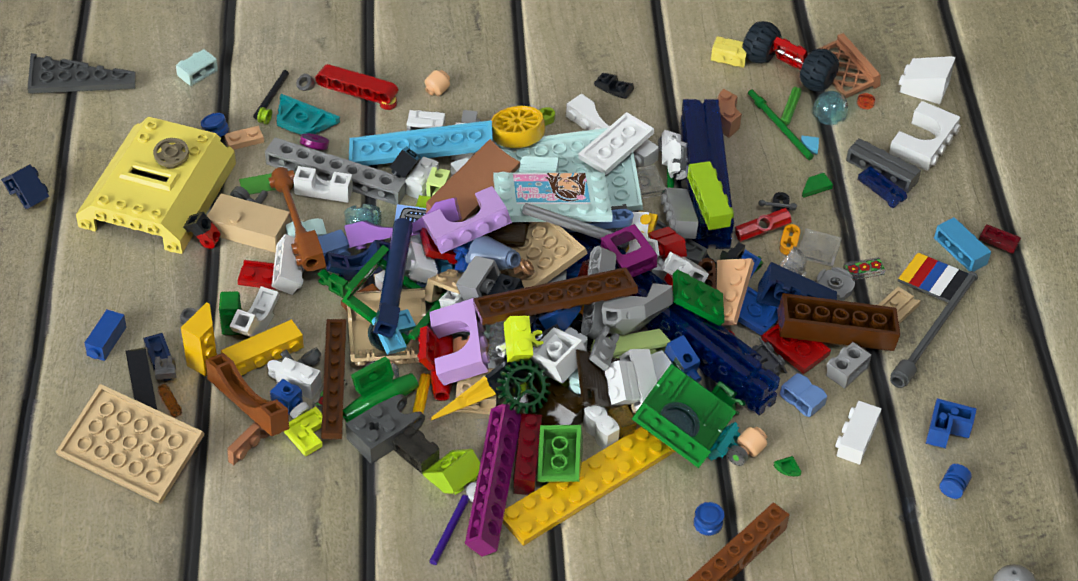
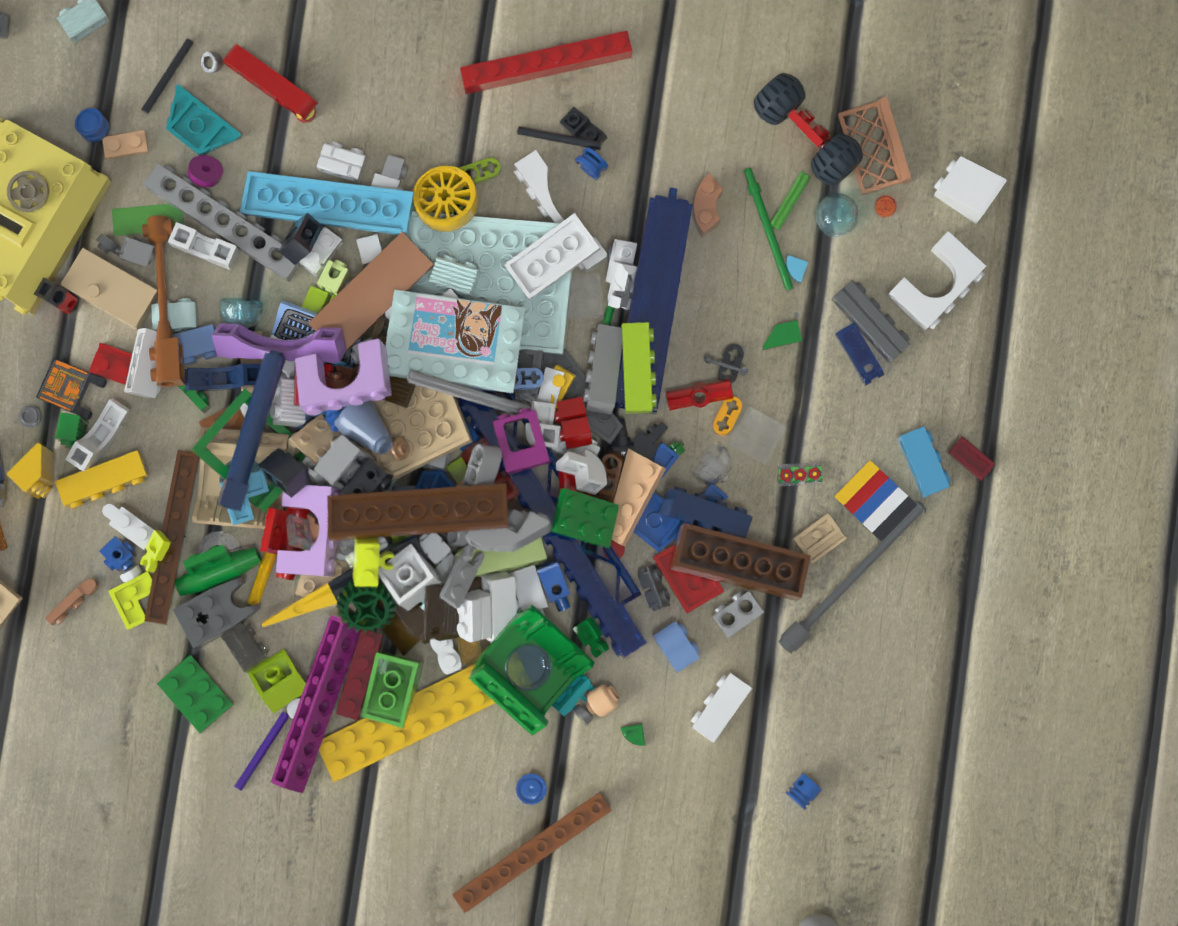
camera: 10 degrees right, 35 degrees up
(212, 287) = (66, 387): none -> flag
(264, 115) = (153, 115): lime bush -> none
(266, 193) = (136, 251): none -> light grey brick
(268, 414) = (73, 553): dark orange arch -> none
(309, 358) = (151, 499): dark grey plate -> none
(322, 379) = (156, 550): none -> neon yellow plate
(377, 495) = (195, 694): none -> green plate
(429, 300) = (285, 472): none -> black brick
(437, 82) = (368, 94): light nougat head -> none
(451, 340) = (299, 532): none -> clear tile
(572, 48) = (546, 62): none -> red brick
(597, 90) = (566, 139): none -> black bar
(628, 99) = (592, 163): none -> blue wheel
(729, 52) = (737, 98): light yellow brick -> none
(842, 277) = (771, 492): light grey plate -> none
(949, 419) = (819, 711): blue brick -> none

